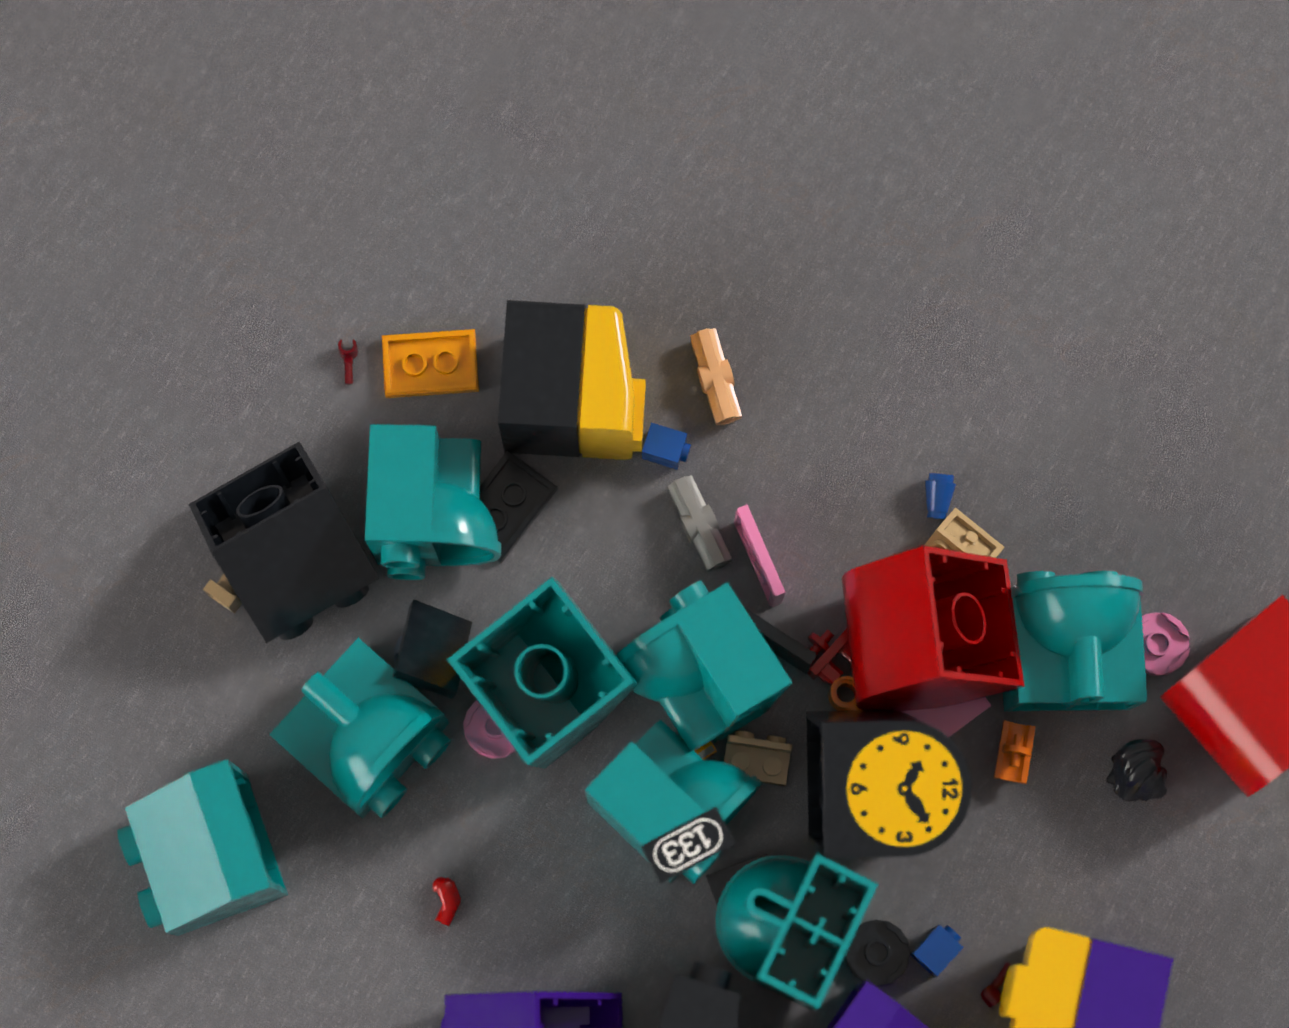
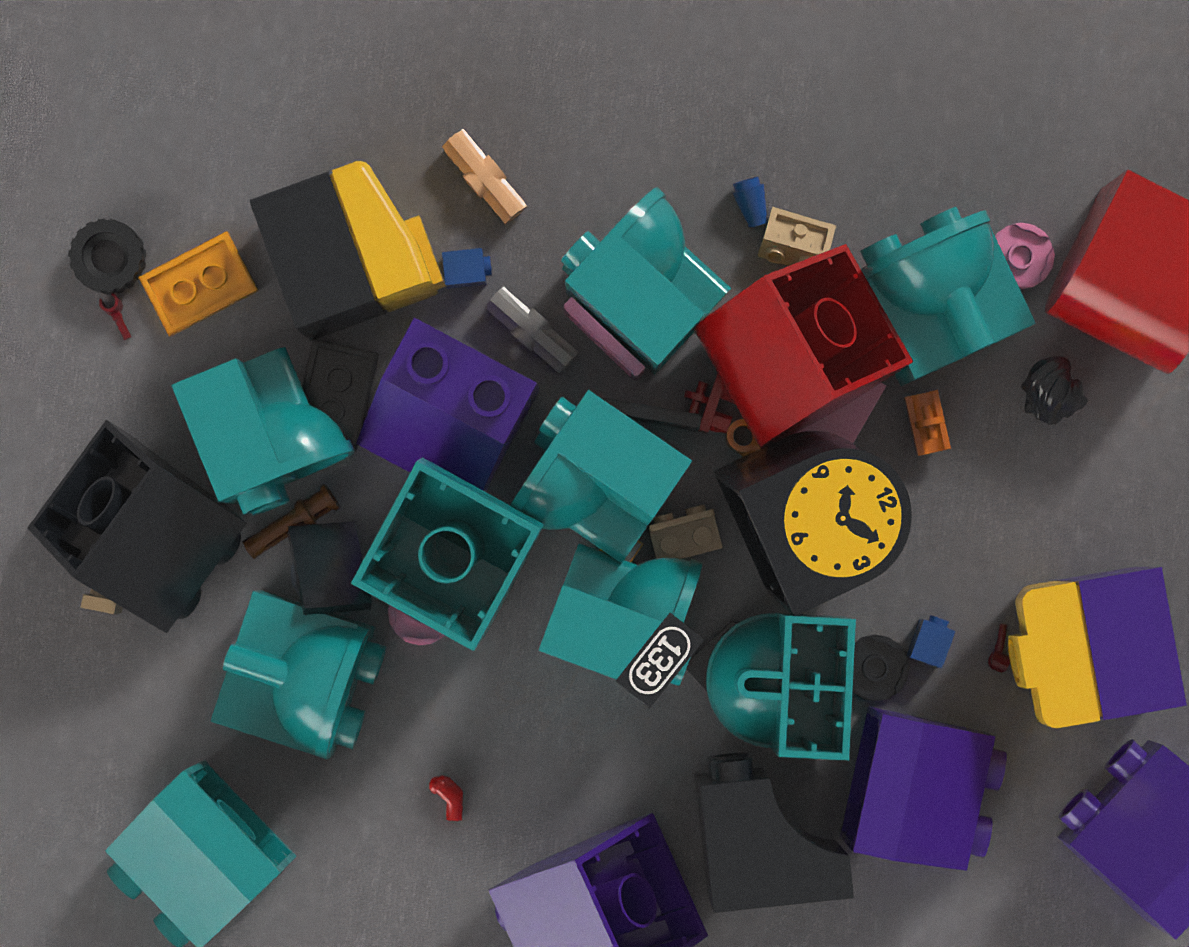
camera: 25 degrees left, 10 degrees up
(352, 286) = (82, 250): none -> black tyre
(433, 595) = (304, 513): none -> reddish brown pin
(599, 550) = (446, 407): none -> dark purple slope
(814, 517) = (643, 281): none -> teal piece

